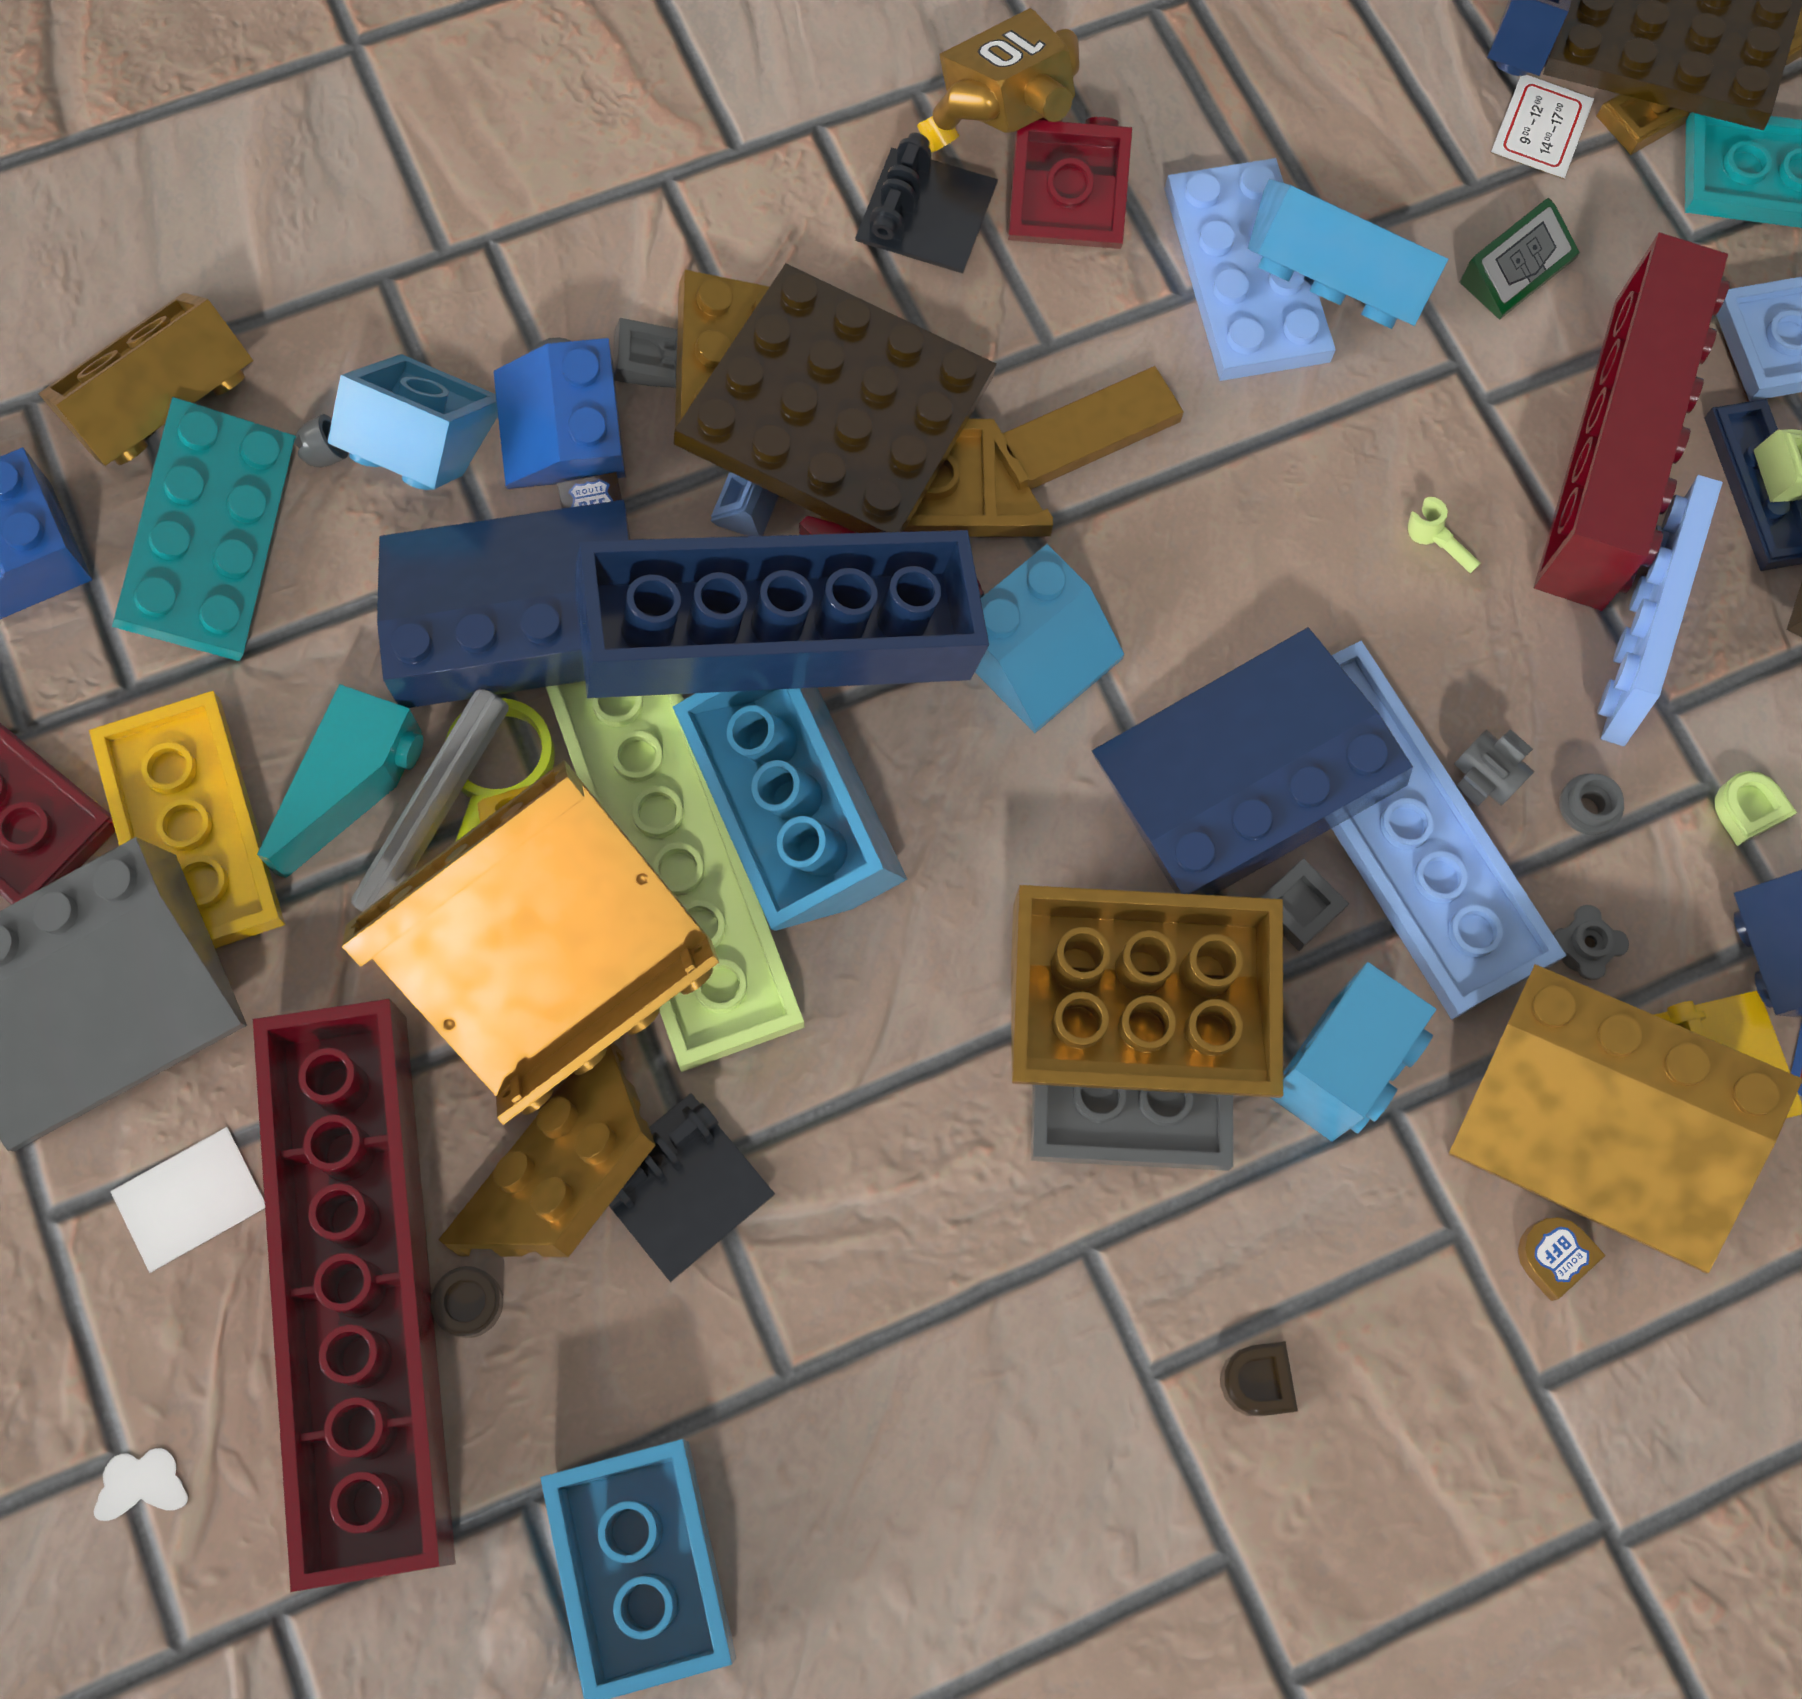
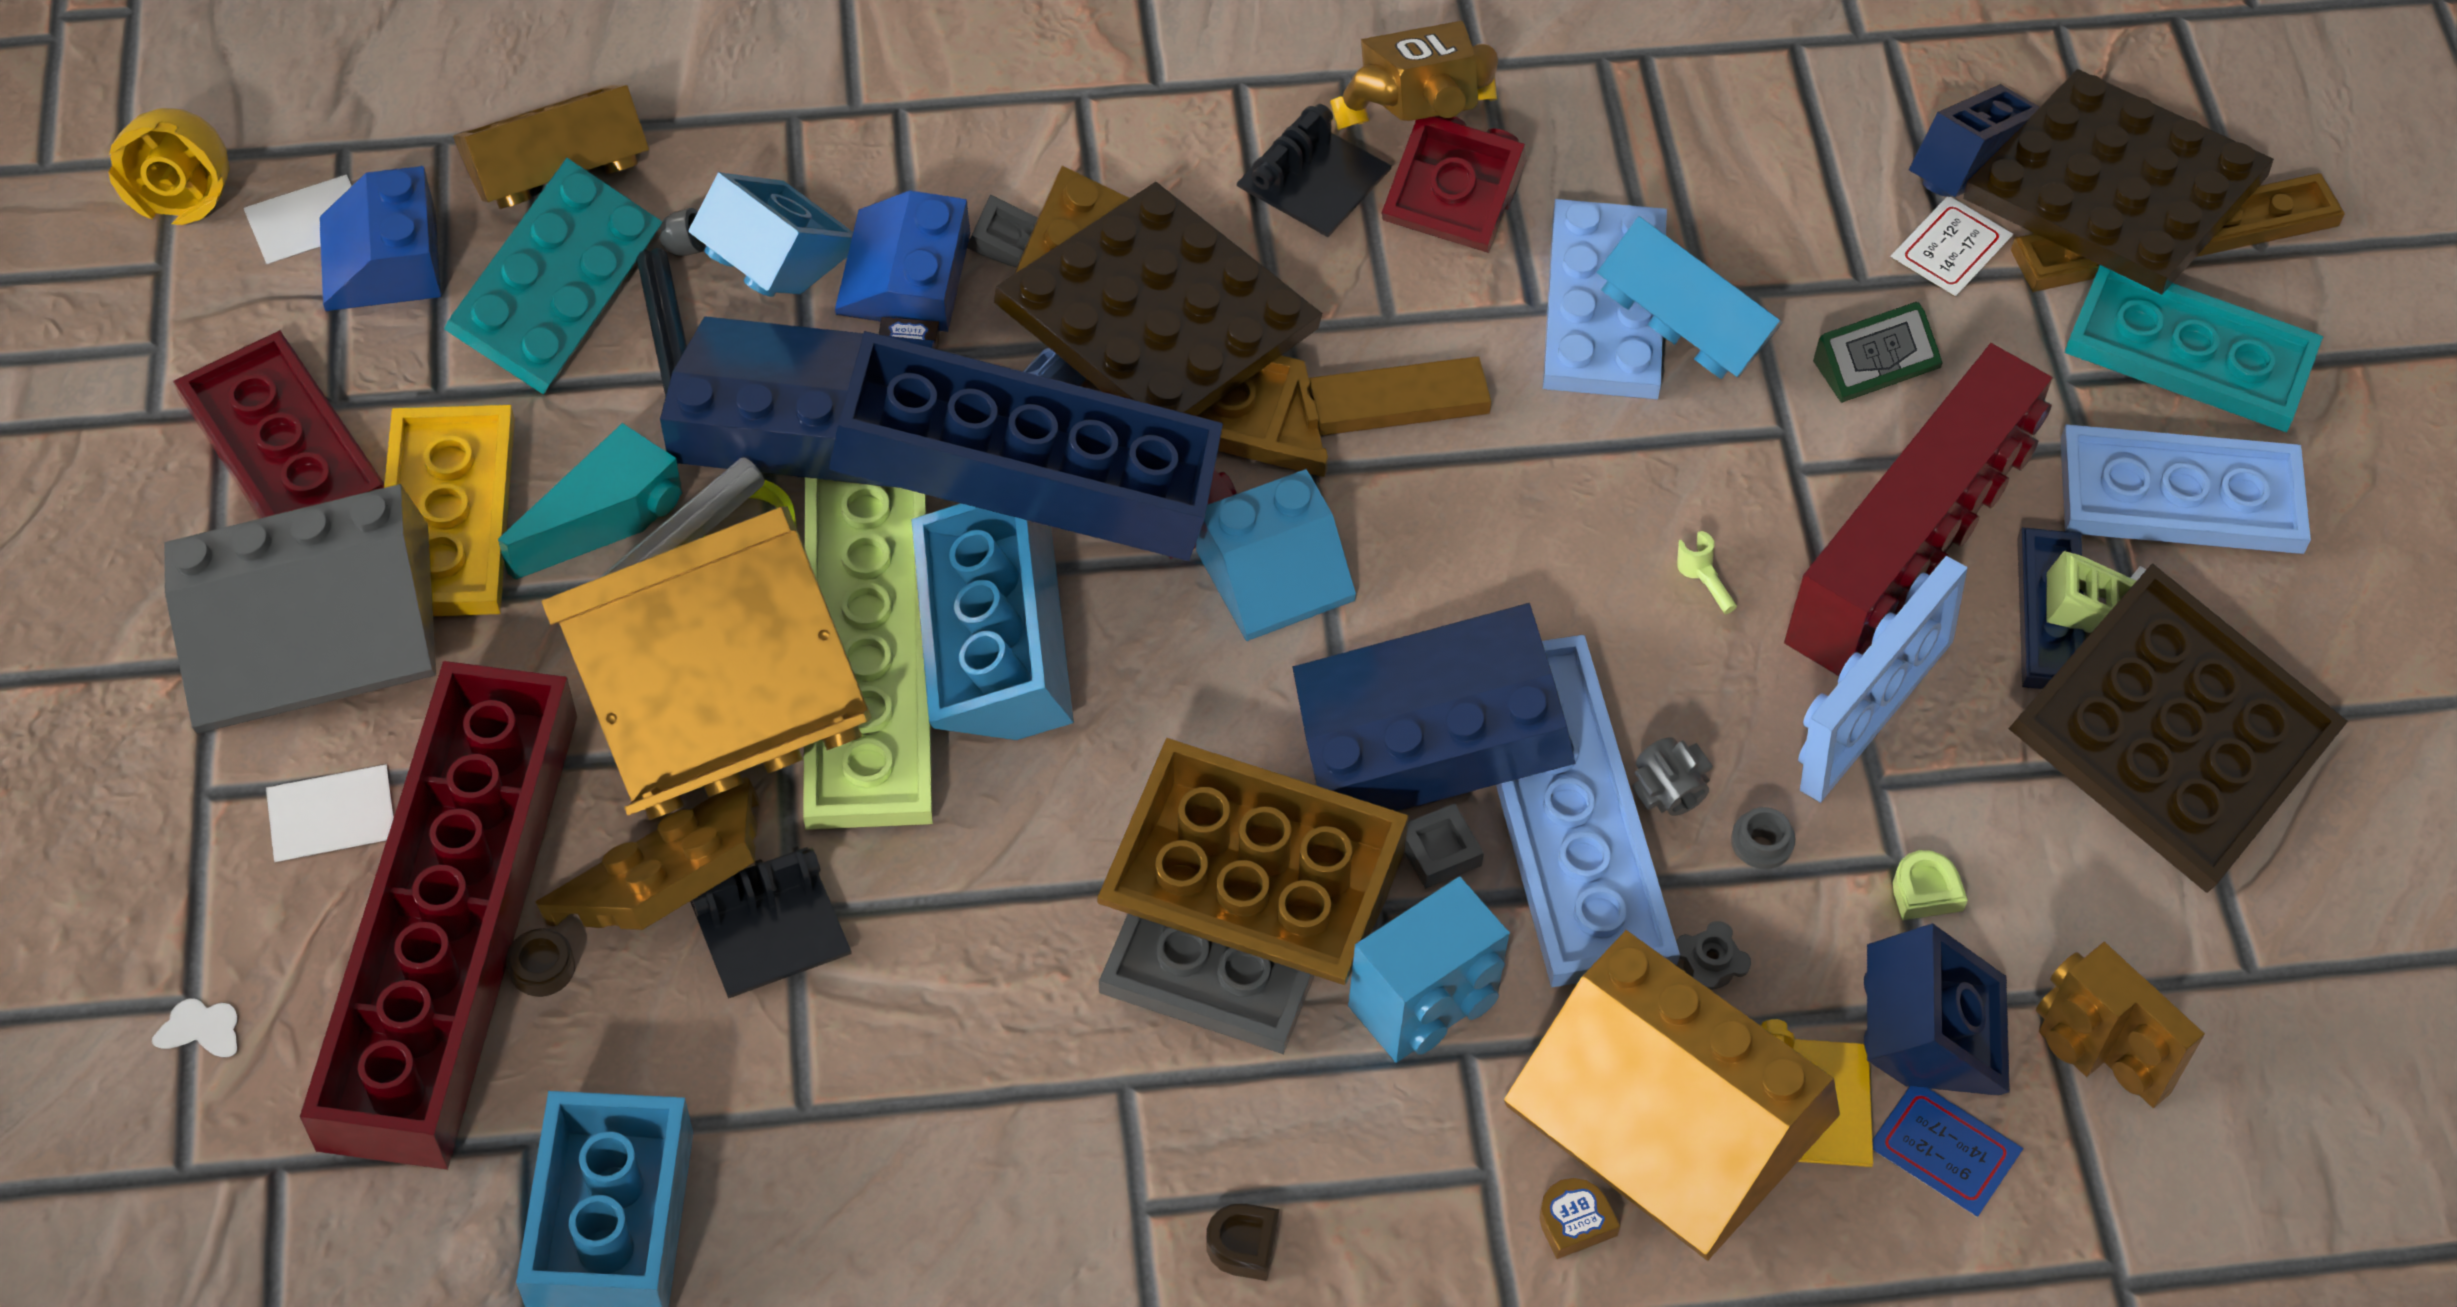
camera: 20 degrees right, 15 degrees down
(336, 545) = (662, 310): none -> black axle

